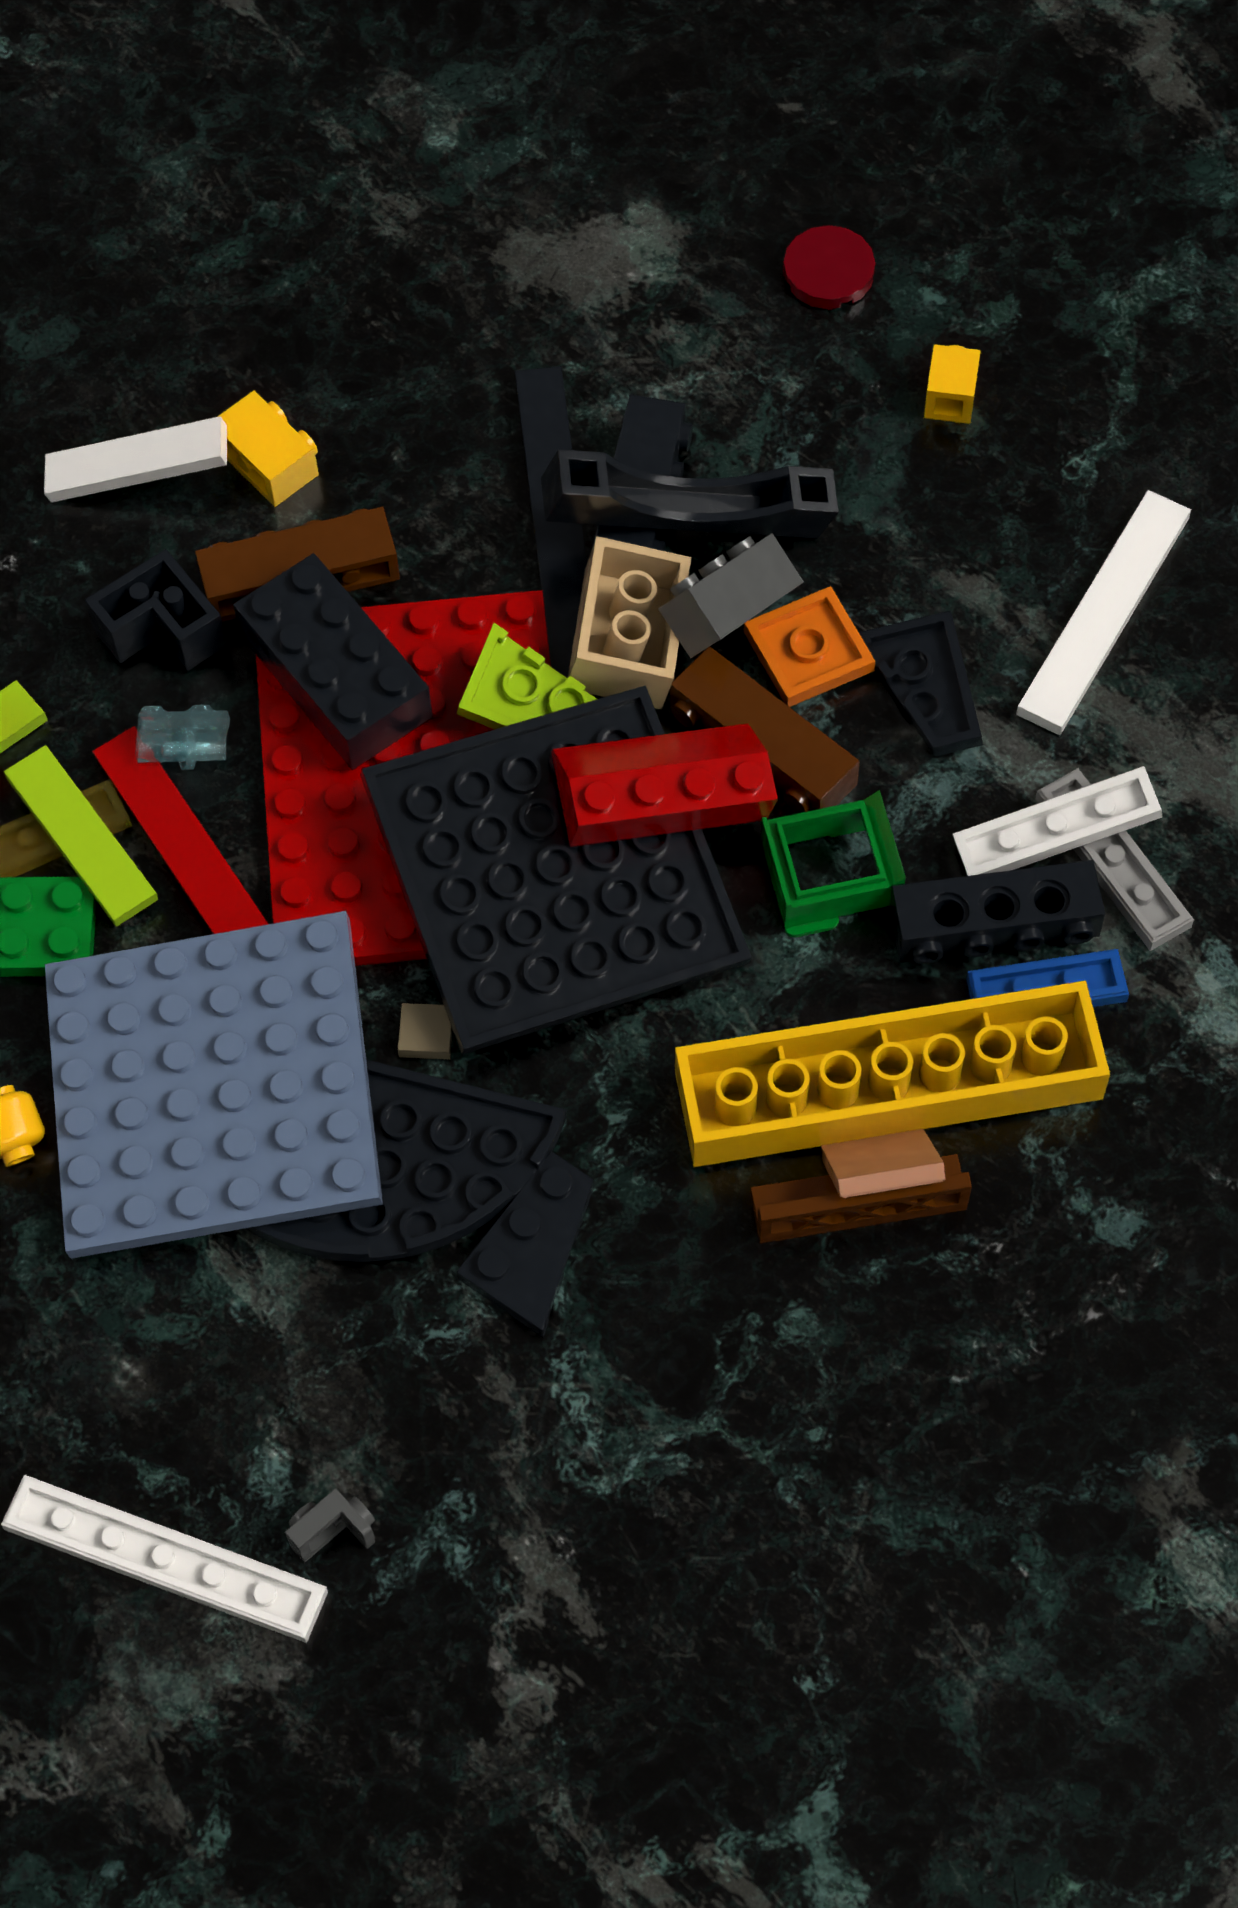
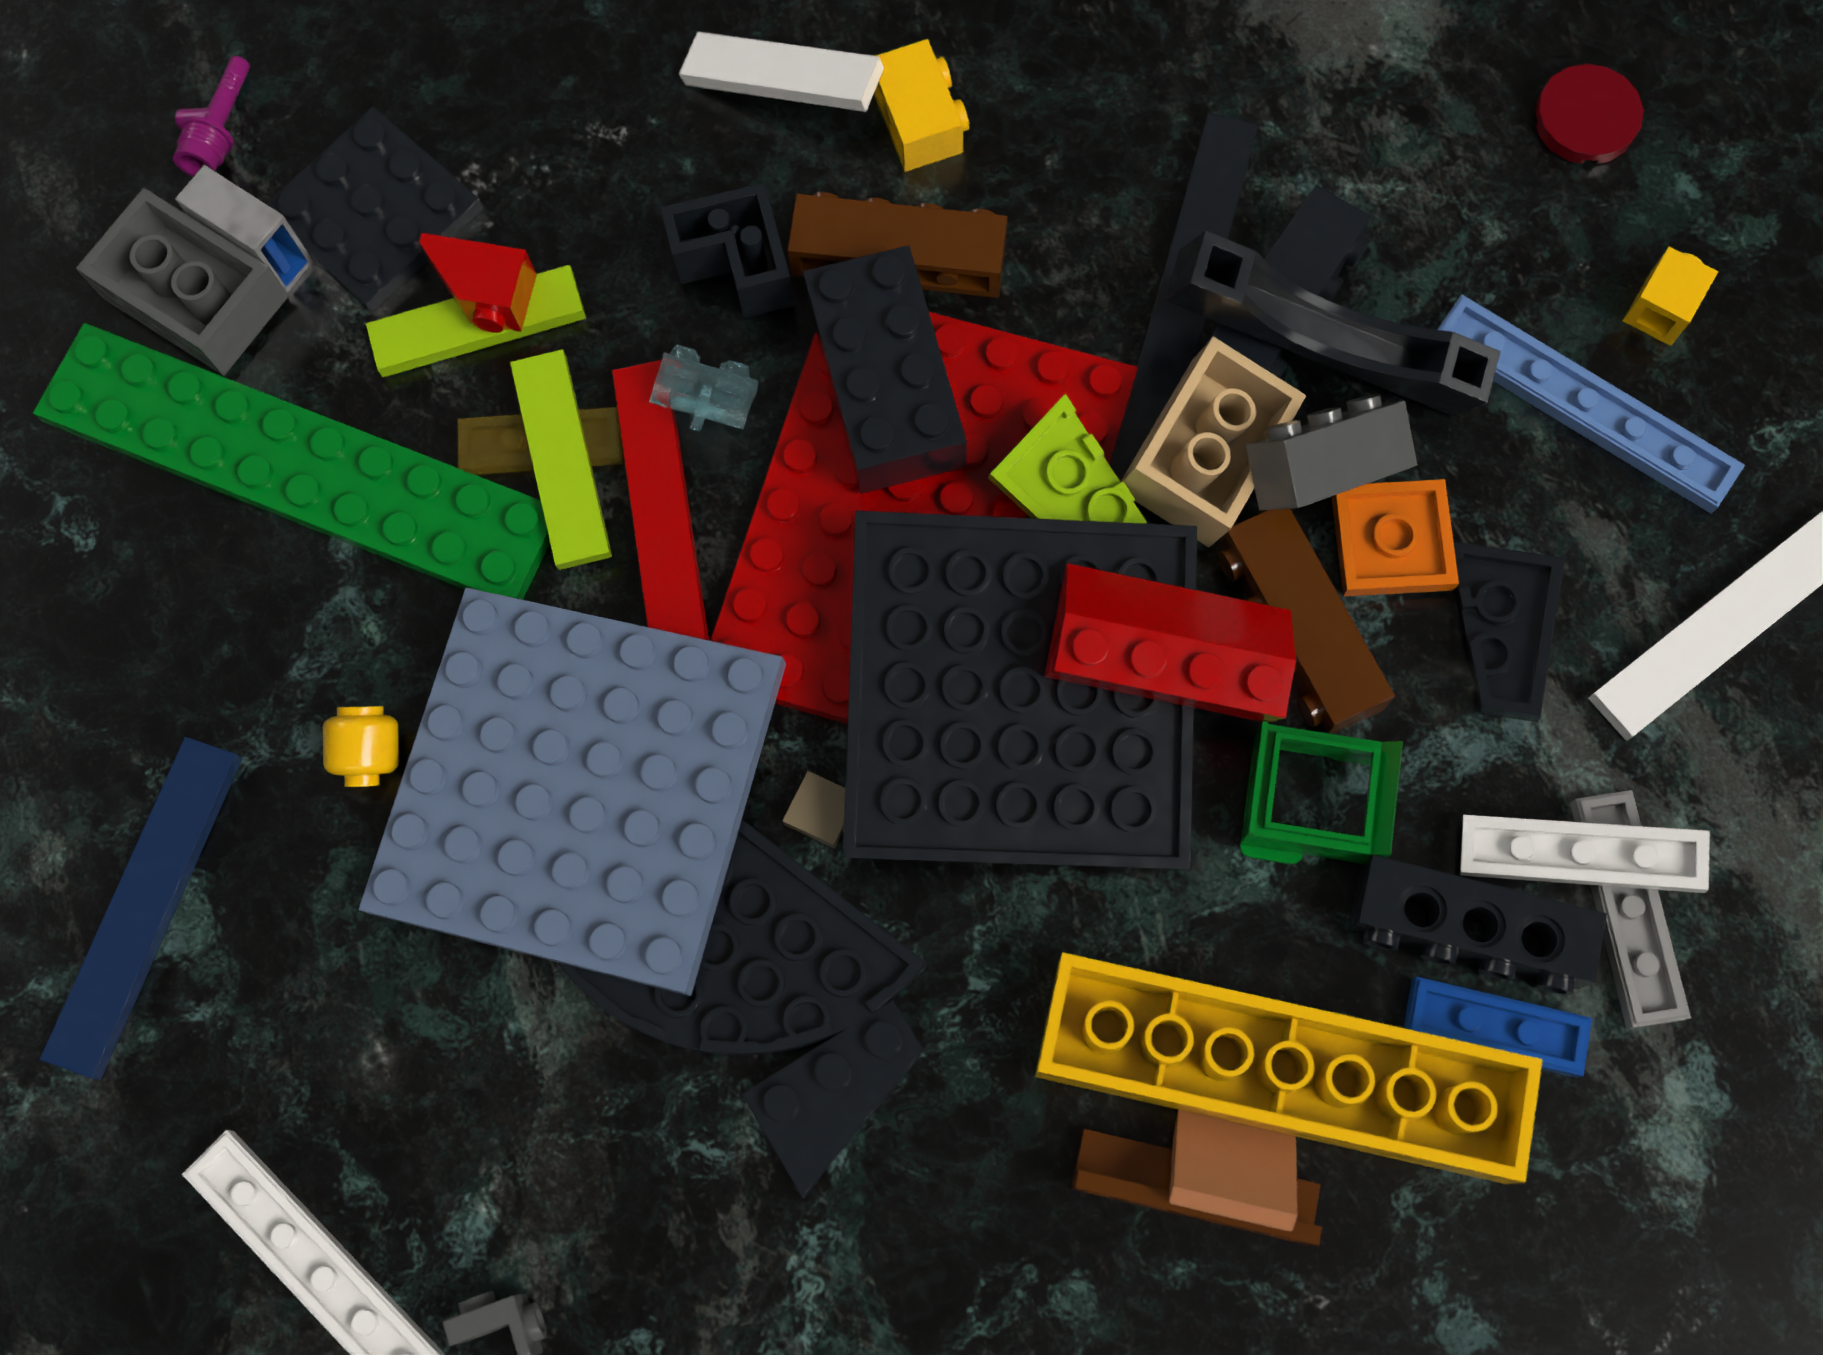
camera: 25 degrees right, 10 degrees up
(934, 491) = (1599, 409): none -> medium blue tile

